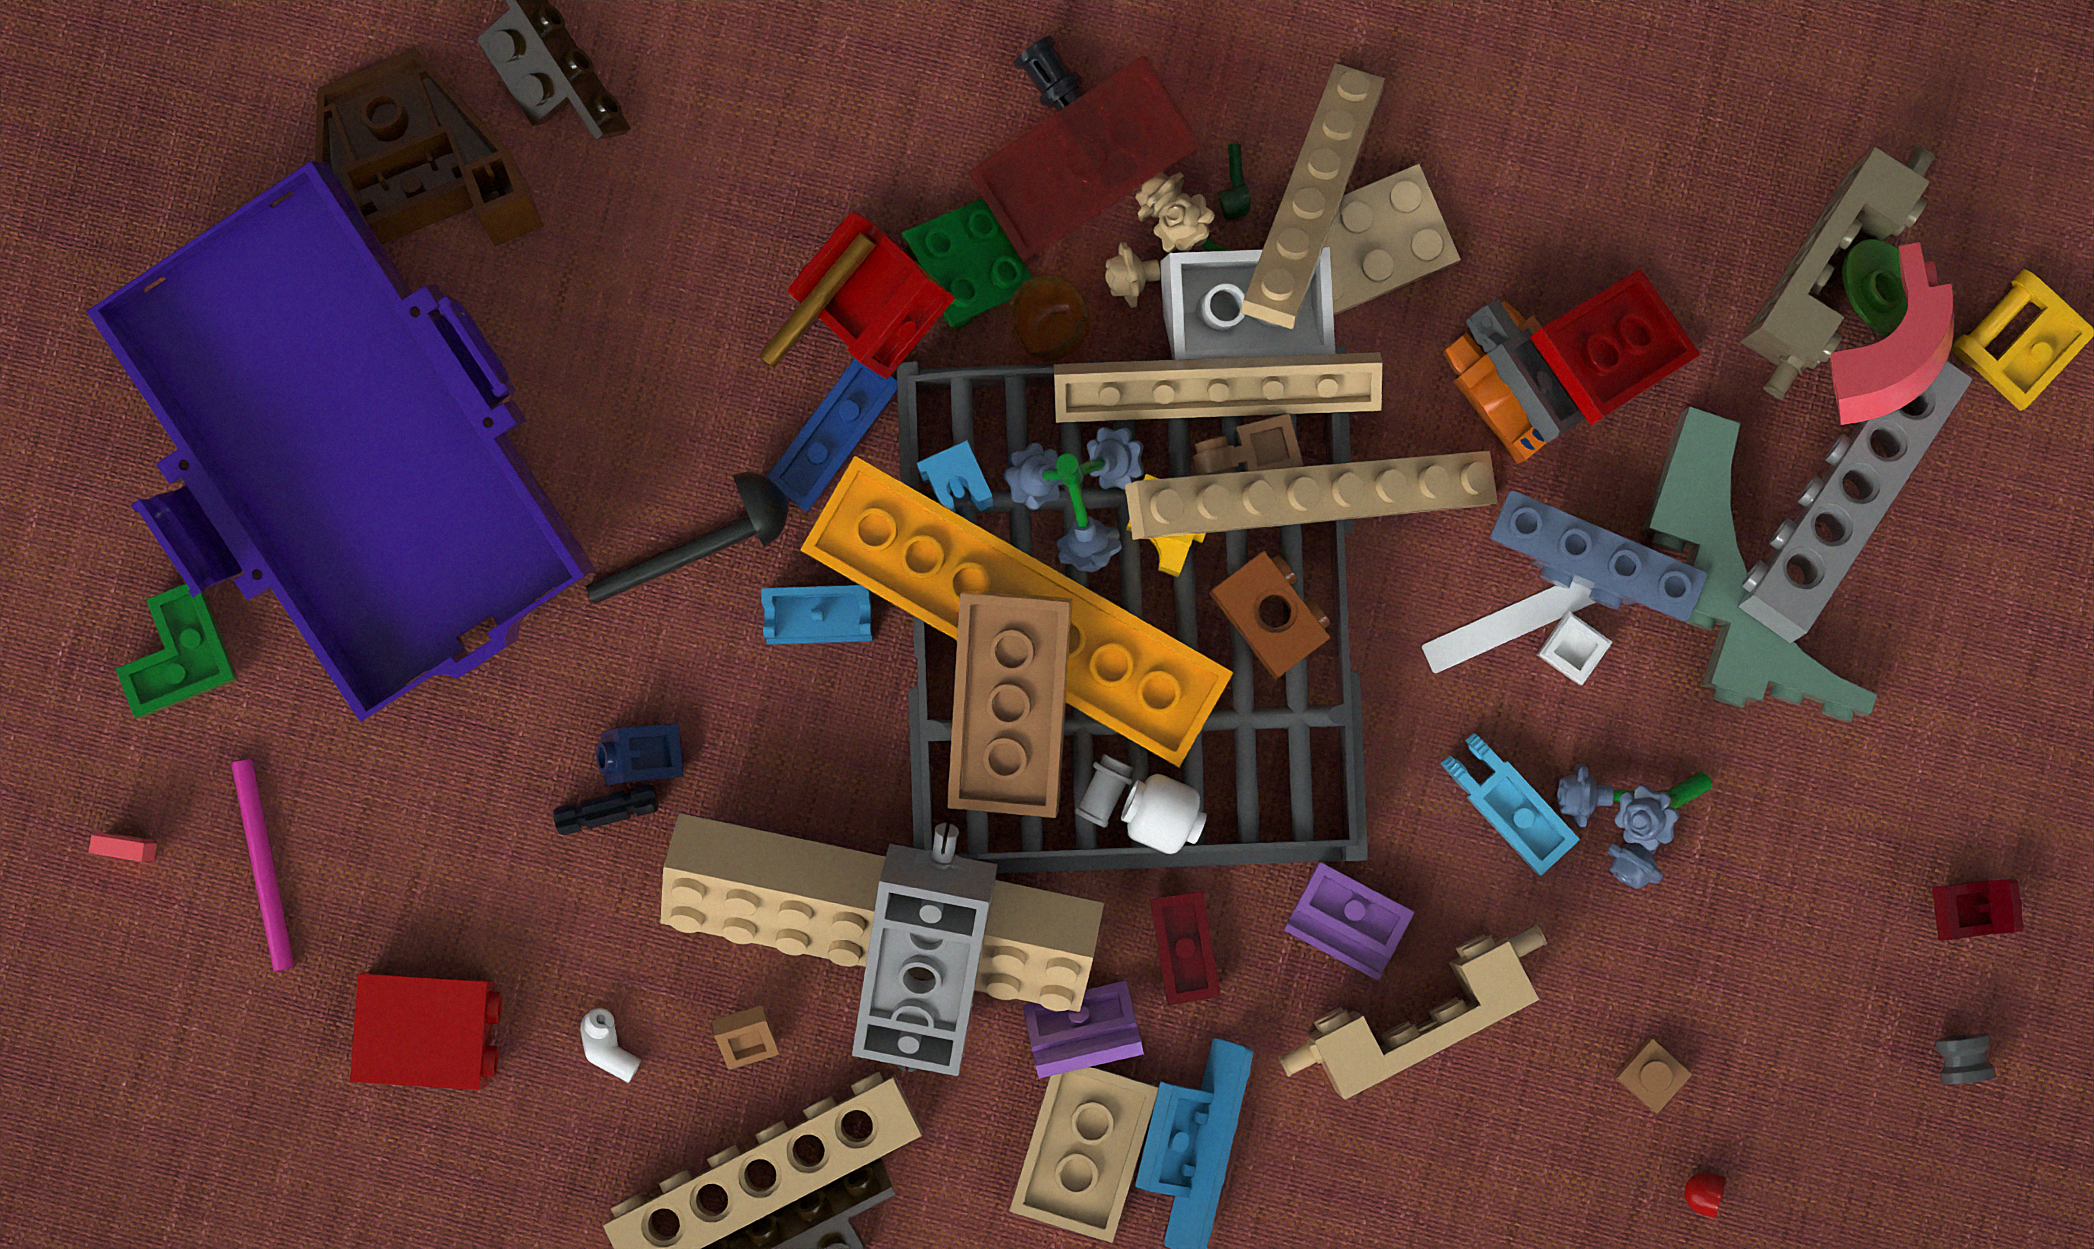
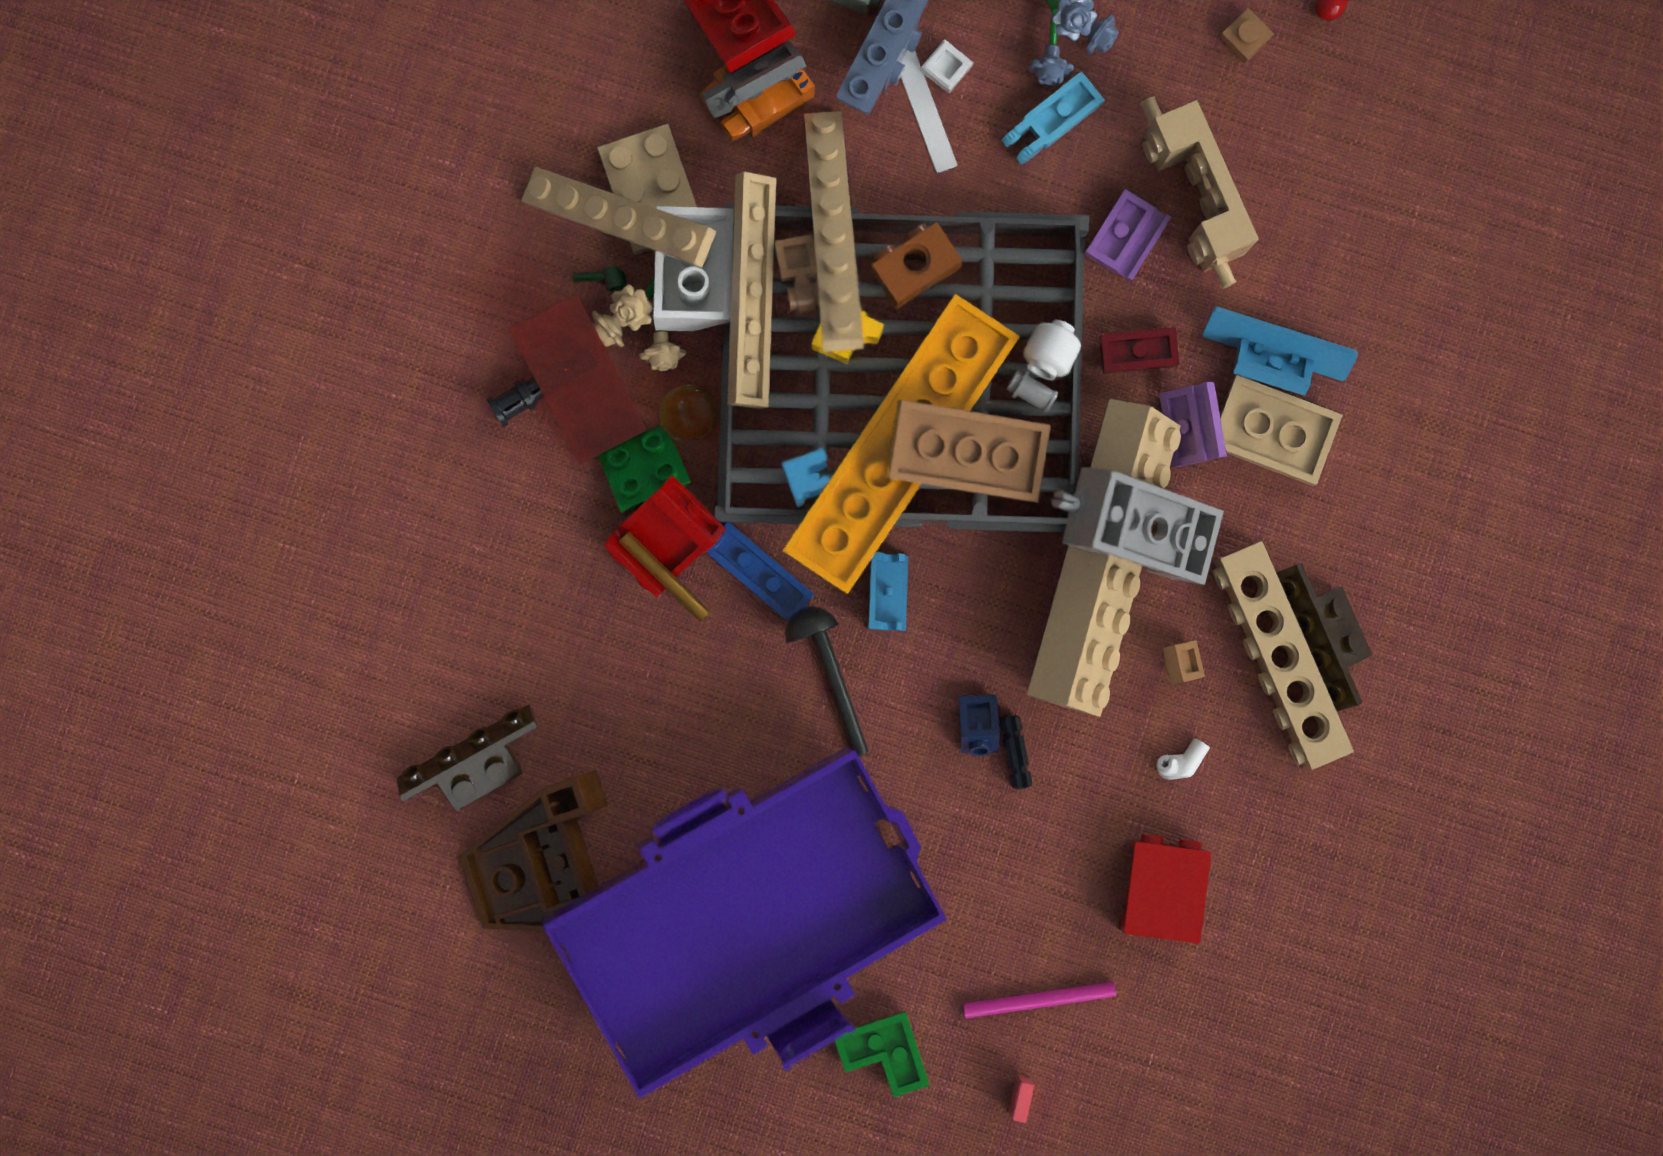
camera: 85 degrees left, 0 degrees up
(1038, 473) = (799, 367): sand blue plant -> none

